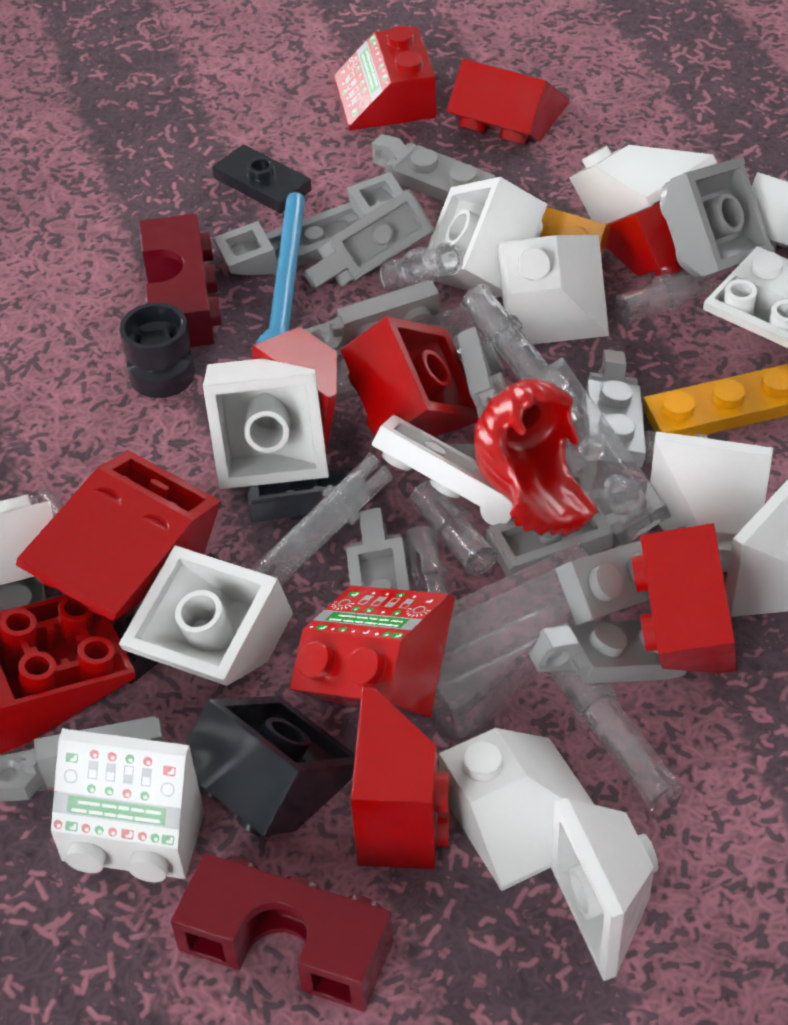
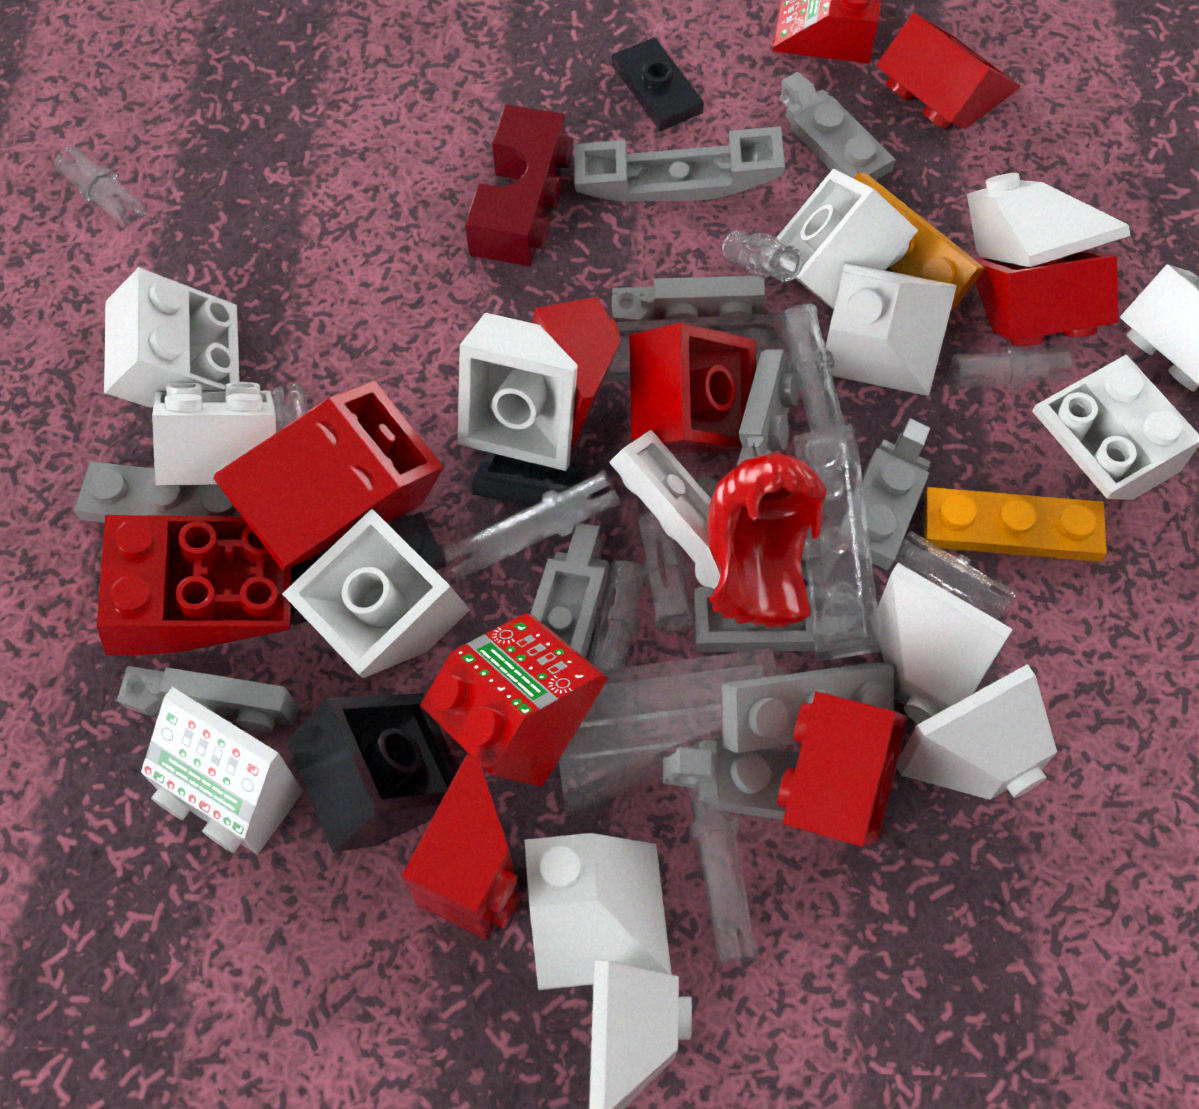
camera: 20 degrees right, 15 degrees up
(157, 350) = (462, 262): black wheel -> none
(236, 904) = (358, 993): dark red arch -> none
(286, 267) = (590, 282): dark azure piece -> none
(371, 241) = (729, 203): light grey hinge -> none
(713, 217) = (1093, 307): light grey slope -> none

